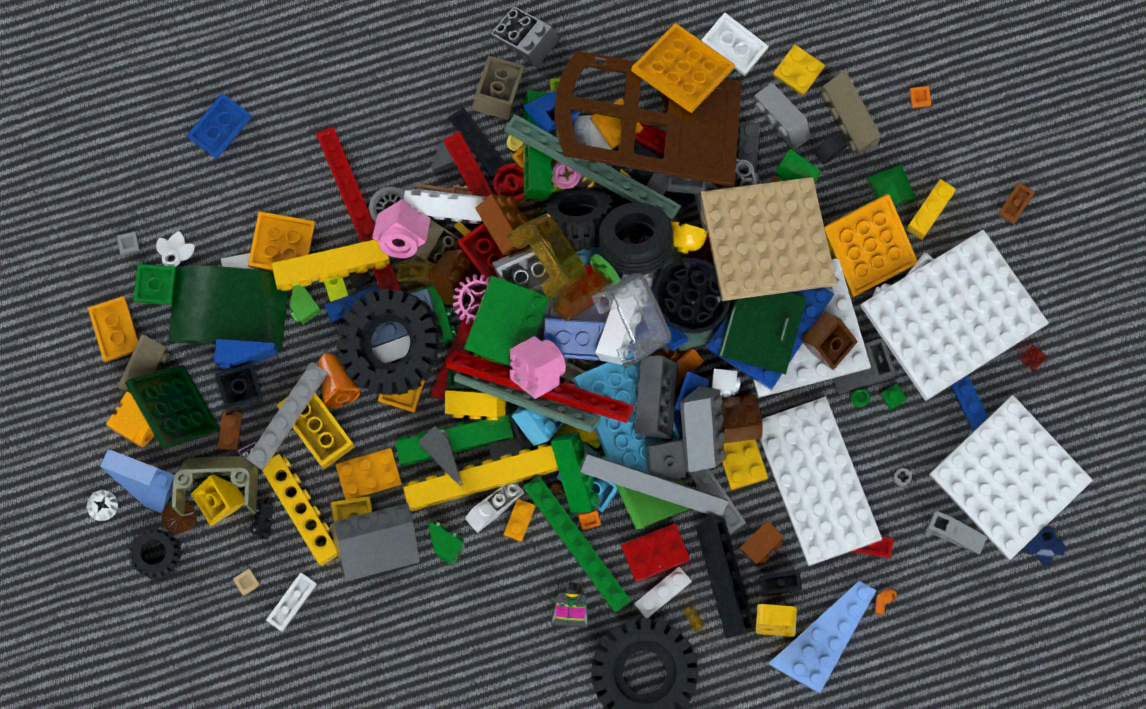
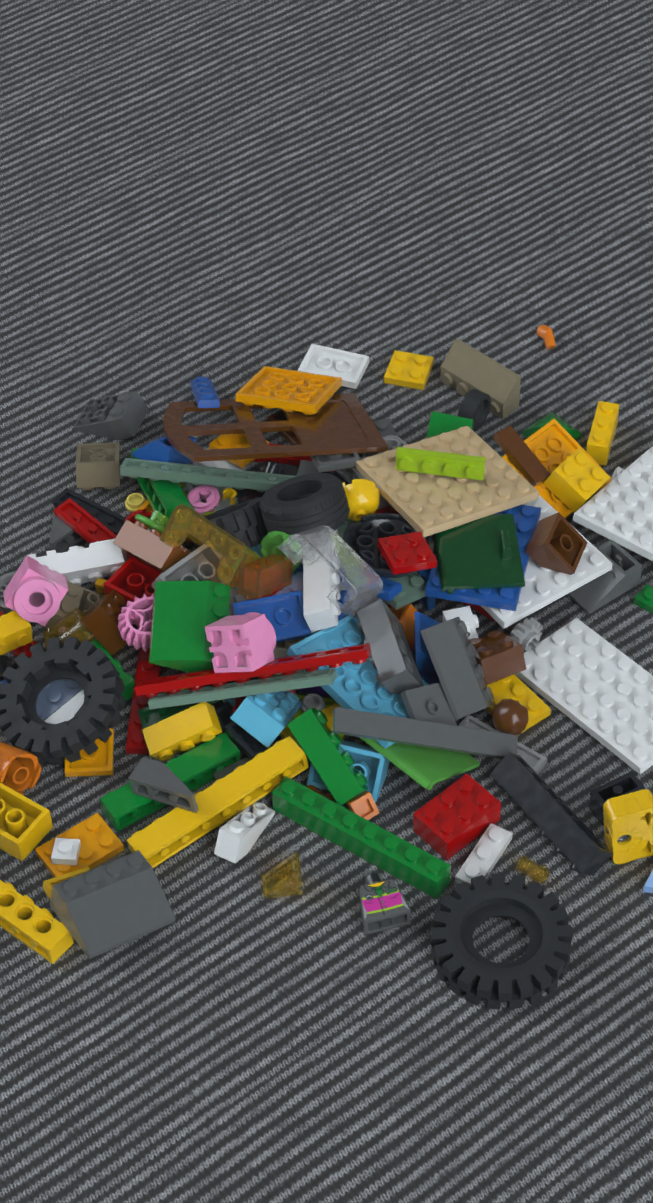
camera: 20 degrees left, 30 degrees down
(291, 602) = (27, 1010): white plate -> none
(356, 479) = (66, 851): none -> white plate
(445, 545) = (200, 880): green slope -> none
(507, 559) = (284, 878): none -> clear yellow slope
(517, 197) = (157, 521): none -> bright green piece
(519, 520) = (280, 838): light orange plate -> none
(609, 46) = (204, 393): none -> blue plate
(701, 314) = (406, 553): none -> red plate
(730, 480) = (510, 717): none -> reddish brown hair
(761, 544) = (575, 770): dark orange brick -> none
(768, 232) = (440, 463): none -> lime plate
(775, 405) = (527, 633): none -> light grey gear
(783, 116) = (409, 400): light grey wedge -> none
(842, 231) = (521, 456): none -> reddish brown tile
(860, 397) = (614, 608): green plate -> none
(880, 266) = (576, 480): none -> yellow brick
(920, 97) = (542, 354): orange plate -> none
(933, 71) = (546, 333): none -> orange arm

